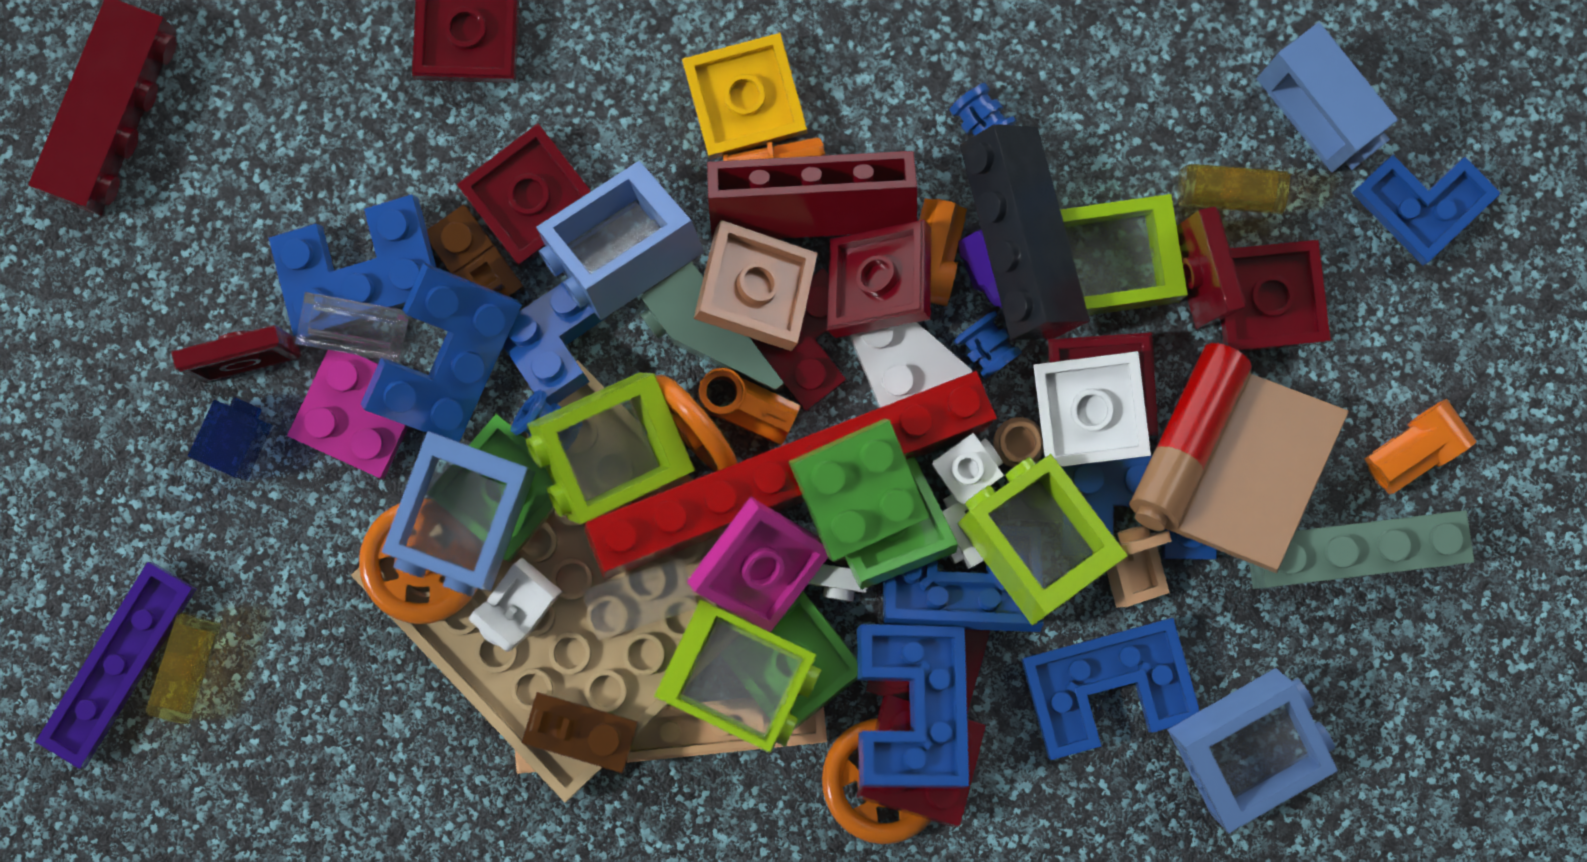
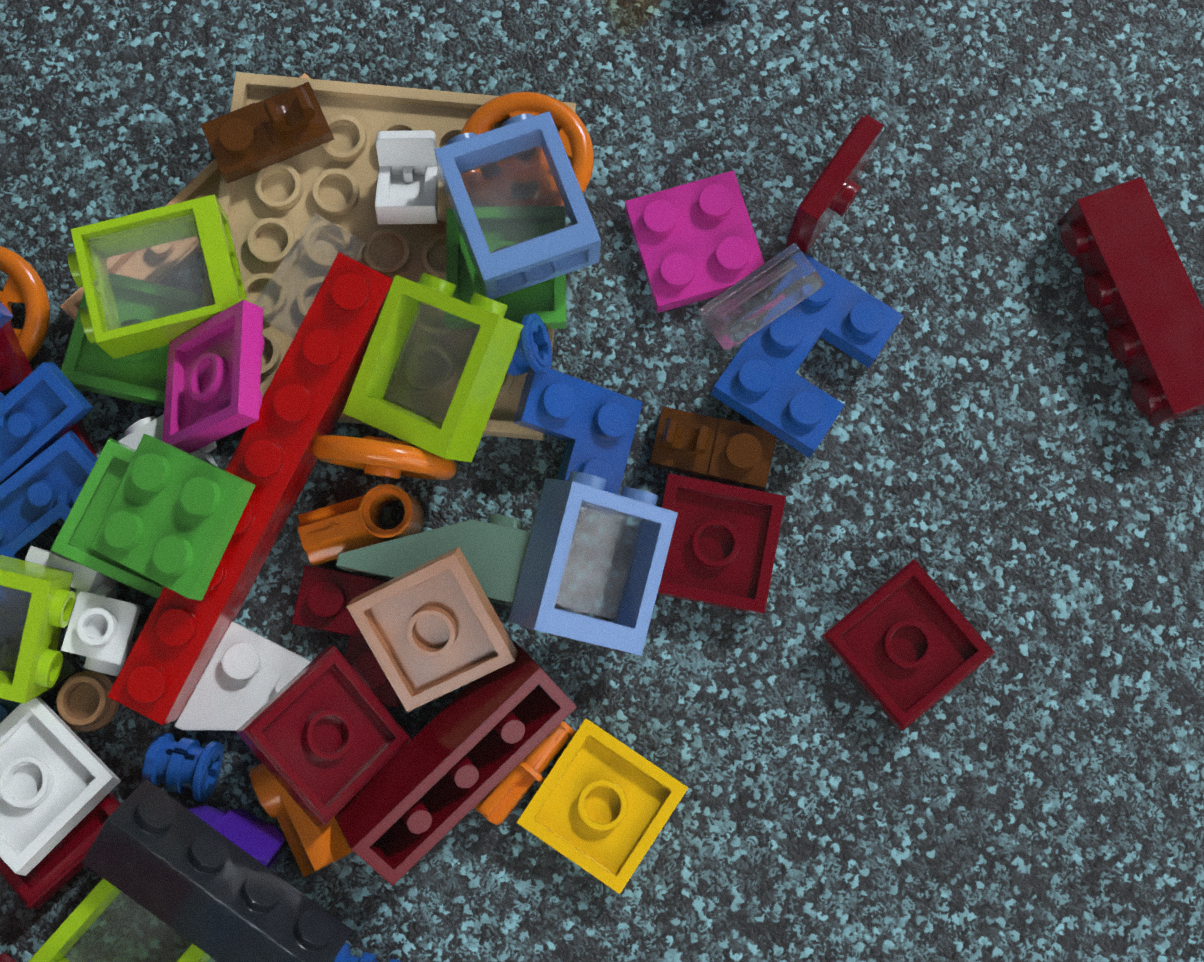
camera: 145 degrees right, 5 degrees down
(231, 438) = (776, 127): clear blue brick -> none
(477, 330) = (650, 380): blue plate -> none

